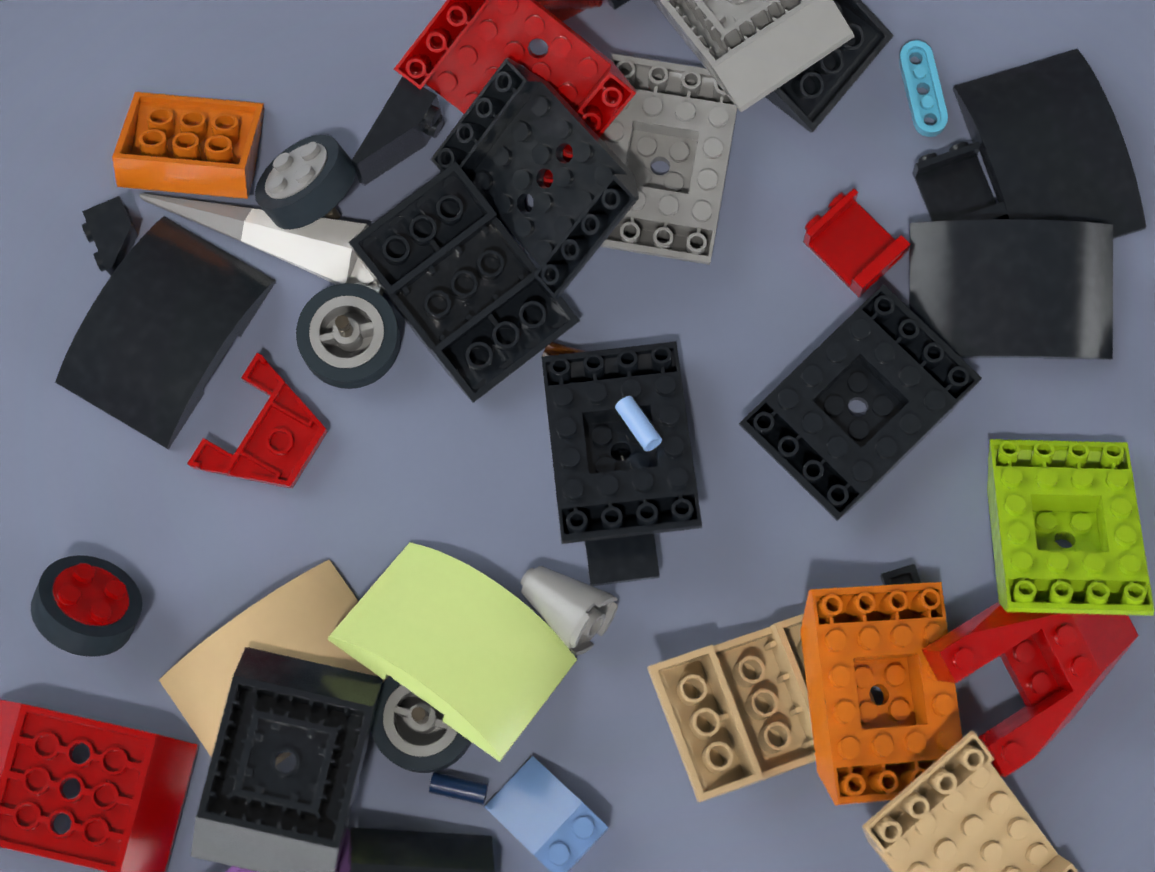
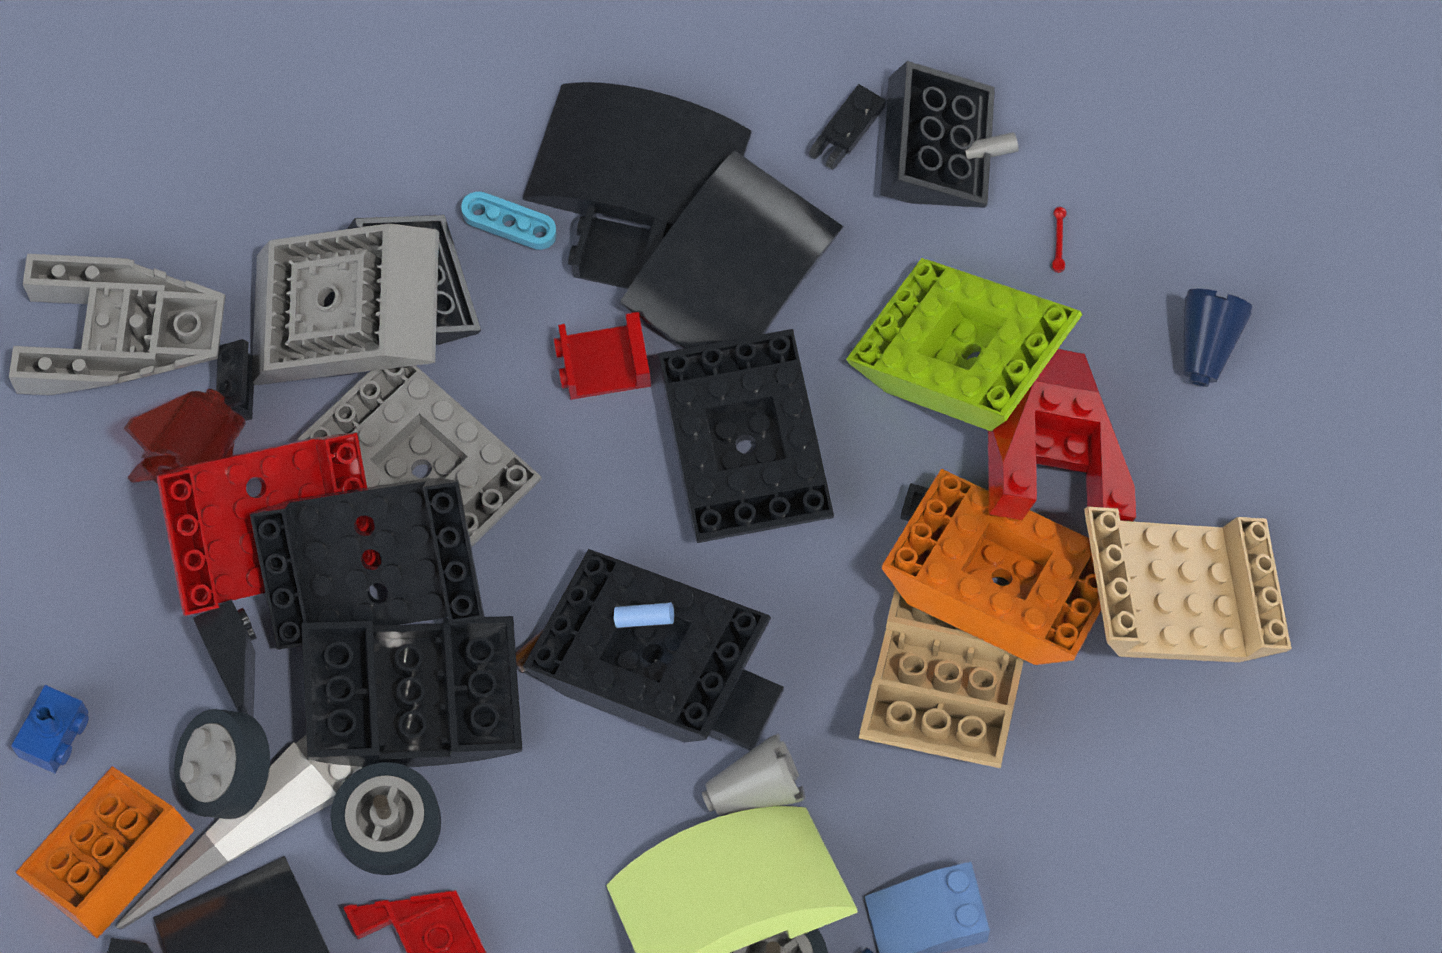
camera: 60 degrees left, 10 degrees down
(259, 37) = (51, 729): none -> blue brick

